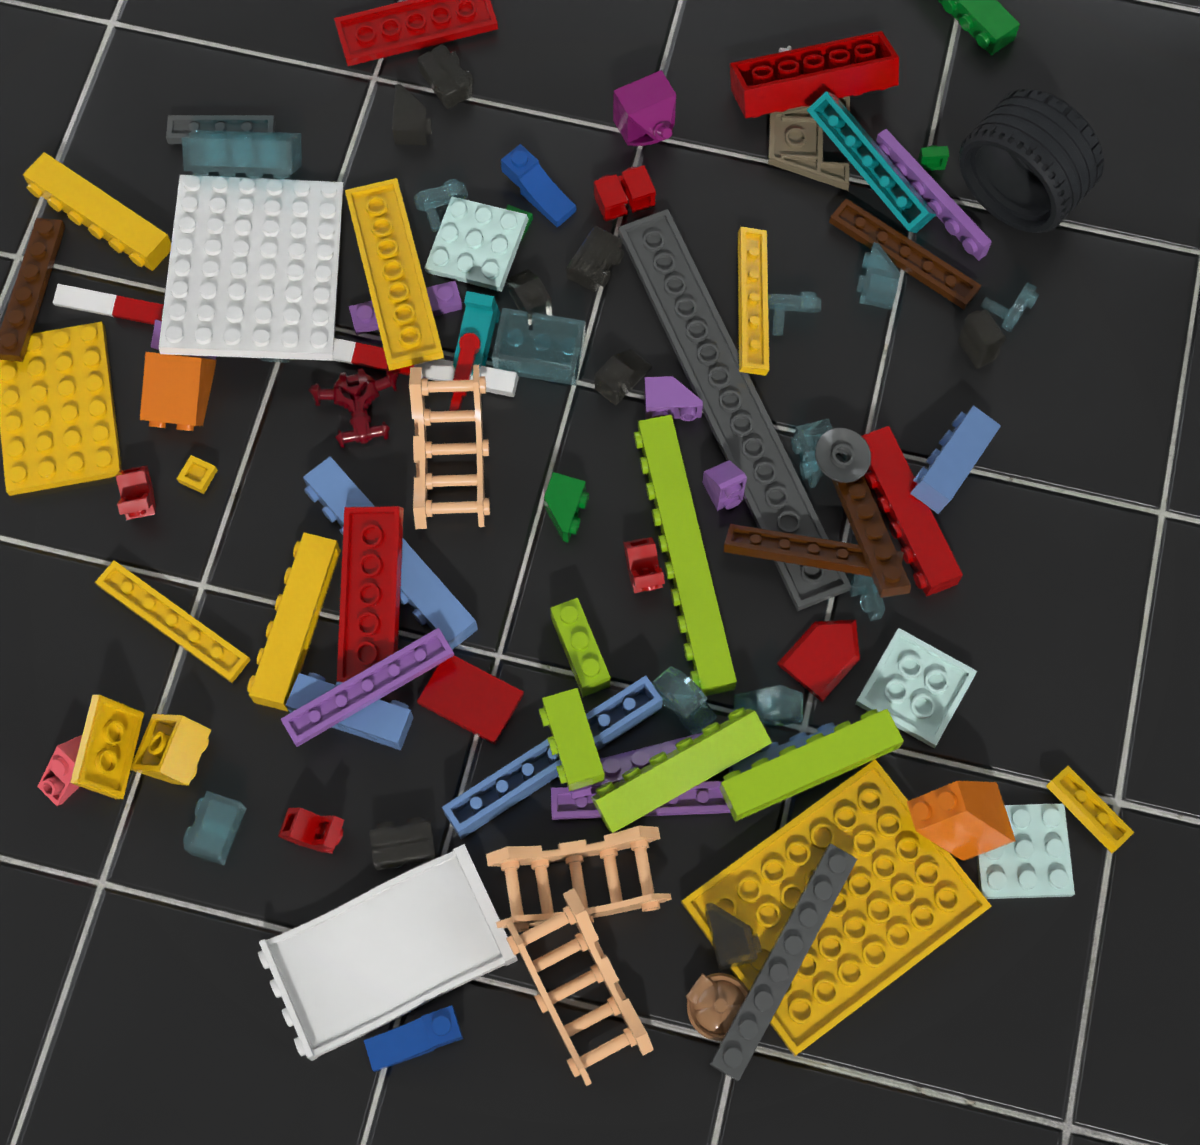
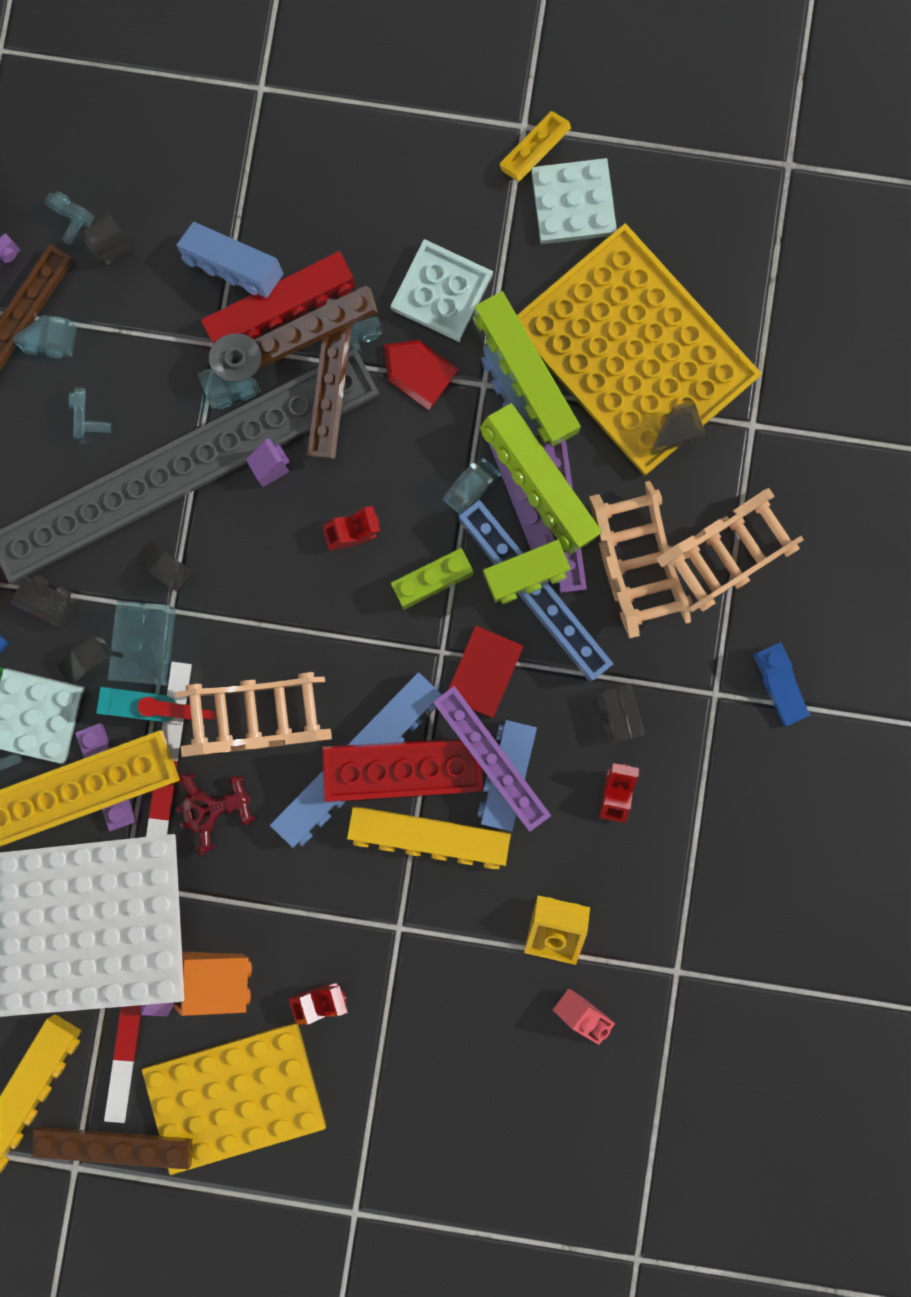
camera: 90 degrees left, 15 degrees up
(107, 747) = (564, 985): yellow tile -> none
(173, 621) = (438, 949): yellow plate -> none
(197, 474) = (293, 949): yellow plate -> none
(214, 827) = (623, 879): clear light blue brick -> none
(385, 953) = (714, 716): white panel -> none
(563, 503) = (295, 607): green slope -> none
(670, 397) = (185, 520): medium lavender slope -> none
(686, 556) = (334, 495): lime brick -> none
(714, 1003) = (729, 437): medium nougat piece -> none
(753, 301) = (79, 450): yellow plate -> none
(773, 705) = (471, 413): clear light blue slope -> none
(783, 962) = (689, 386): dark grey plate -> none
(963, 818) = (558, 242): orange slope -> none

